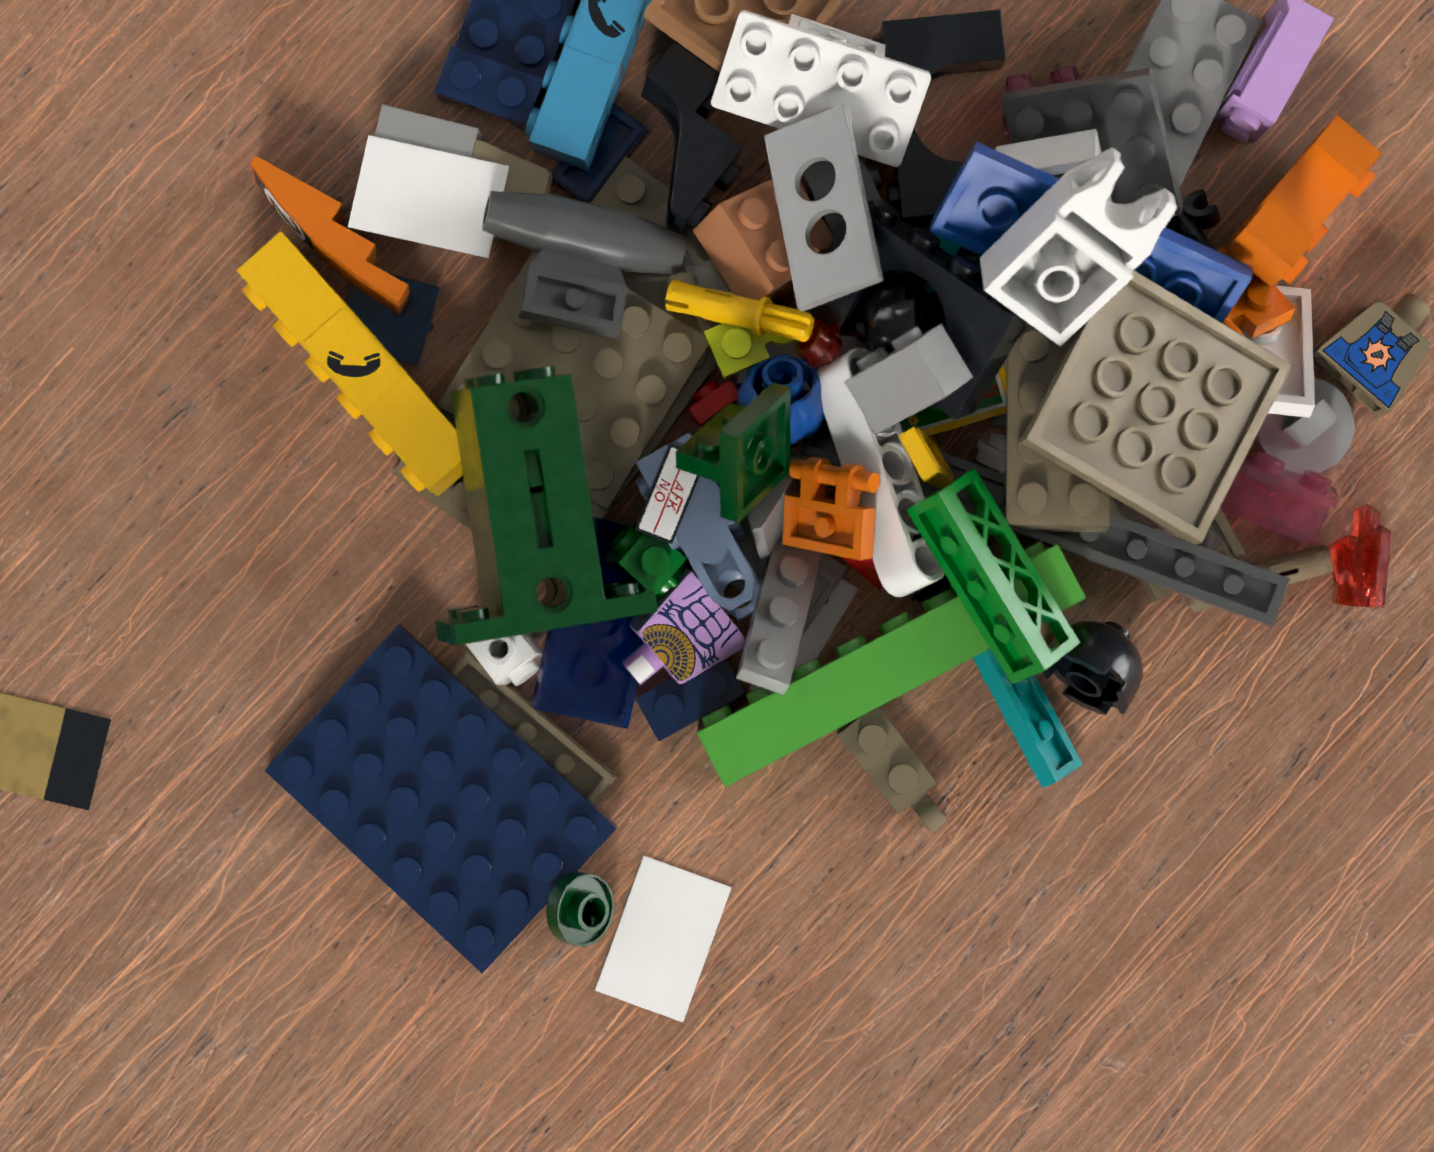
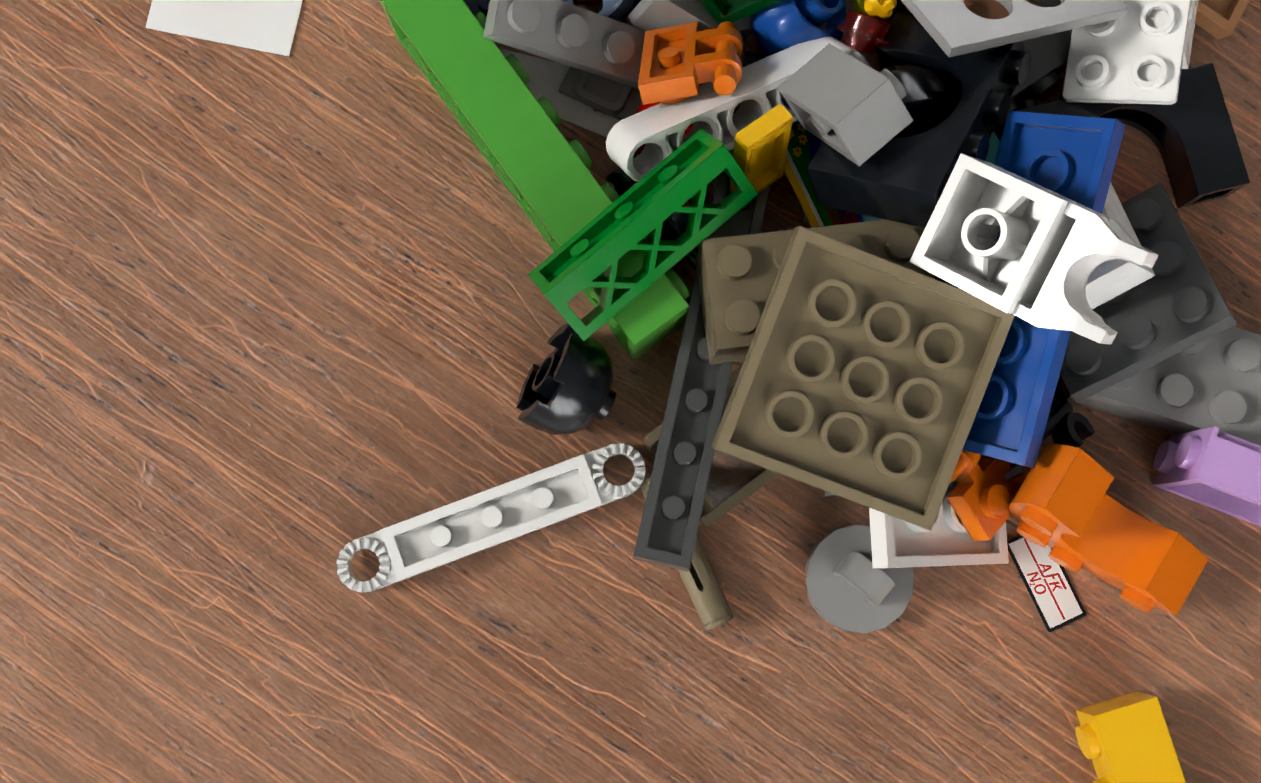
camera: 80 degrees right, 5 degrees down
(892, 766) = (431, 197): dark tan plate -> none
(1031, 722) = (497, 332): teal plate -> none
(1204, 750) = (490, 518): none -> white plate
(1280, 498) = (777, 560): clear pink bracket -> none
(1336, 254) = (1046, 583): none -> white sticker
(1362, 561) = (722, 660): clear red rock -> none
(1377, 352) = (954, 643): torso -> none

